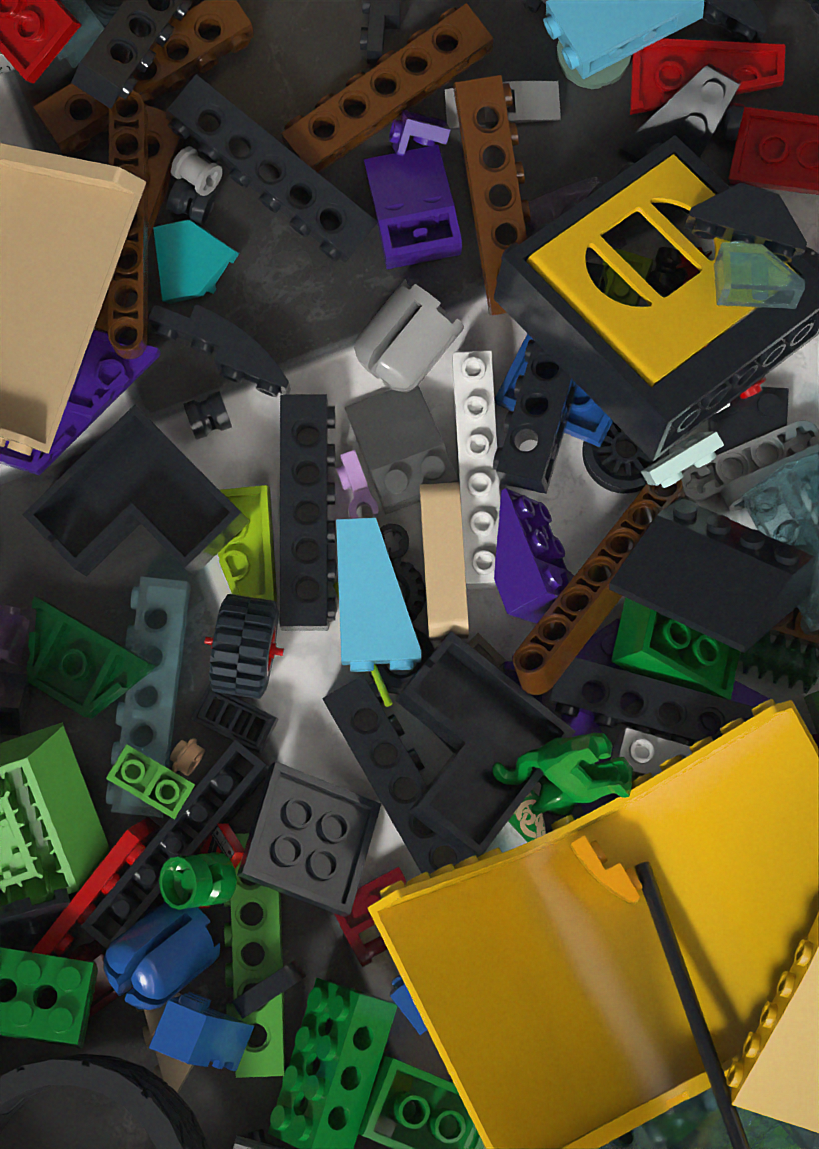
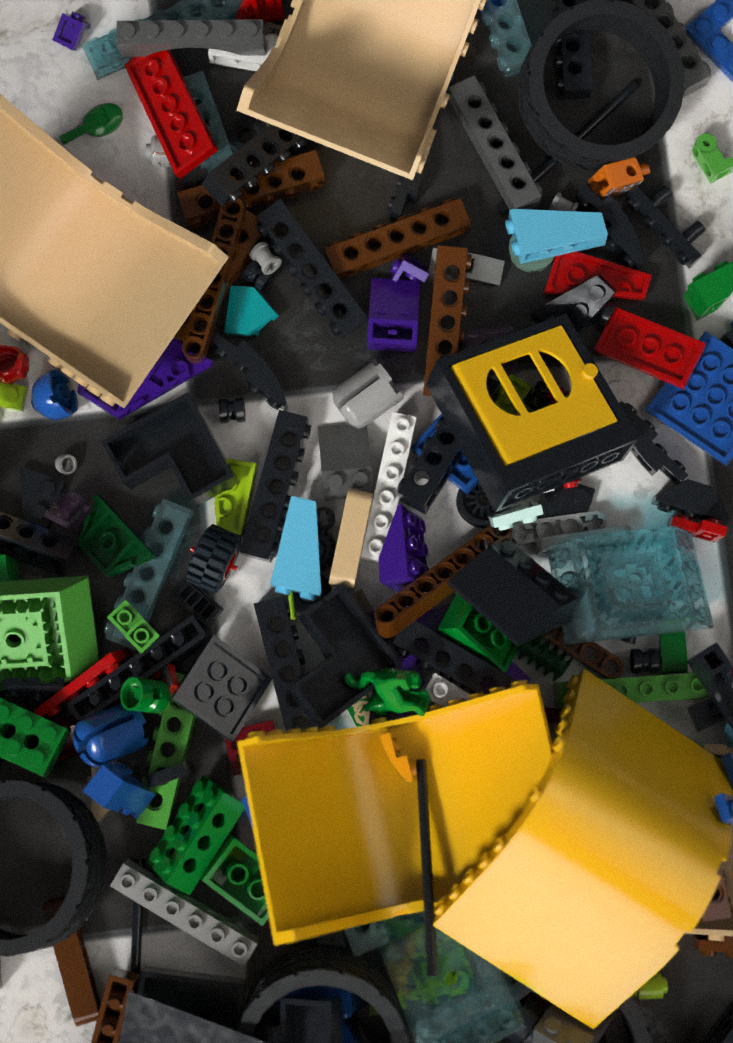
camera: 15 degrees right, 0 degrees up
(186, 756) = (161, 616): light nougat plate -> none
(352, 477) = (309, 471): lavender plate -> none
(751, 217) = (595, 379): black slope -> none
(754, 278) = (588, 415): clear light blue slope -> none

